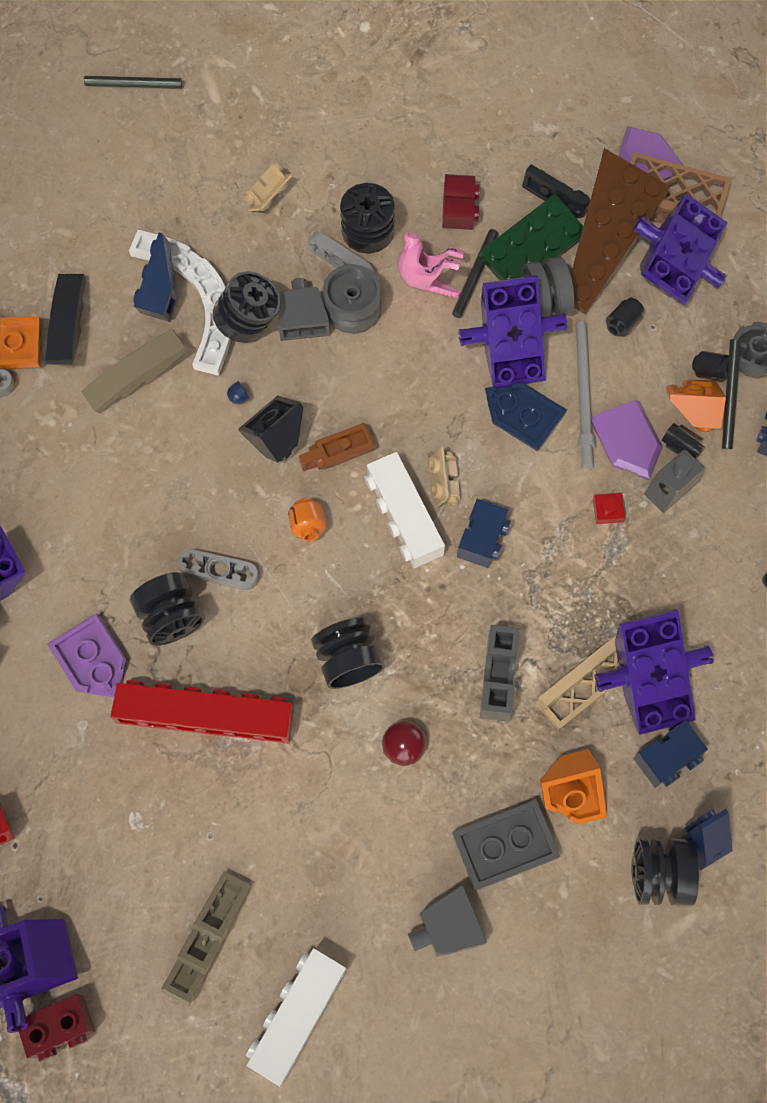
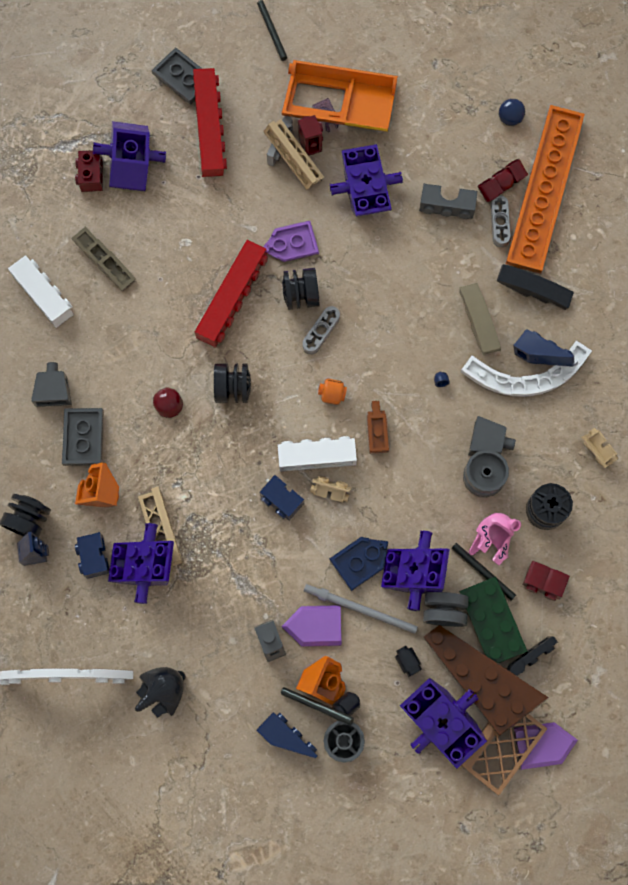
camera: 110 degrees right, 5 degrees up
(246, 307) = (491, 390): black wheel -> none
(275, 428) = (405, 391): black slope -> none
(334, 252) = (525, 479): light grey beam -> none
(499, 673) = (190, 474): dark grey arch -> none
(608, 508) = (270, 589): red plate -> none
(681, 438) = (297, 659): black brick -> none

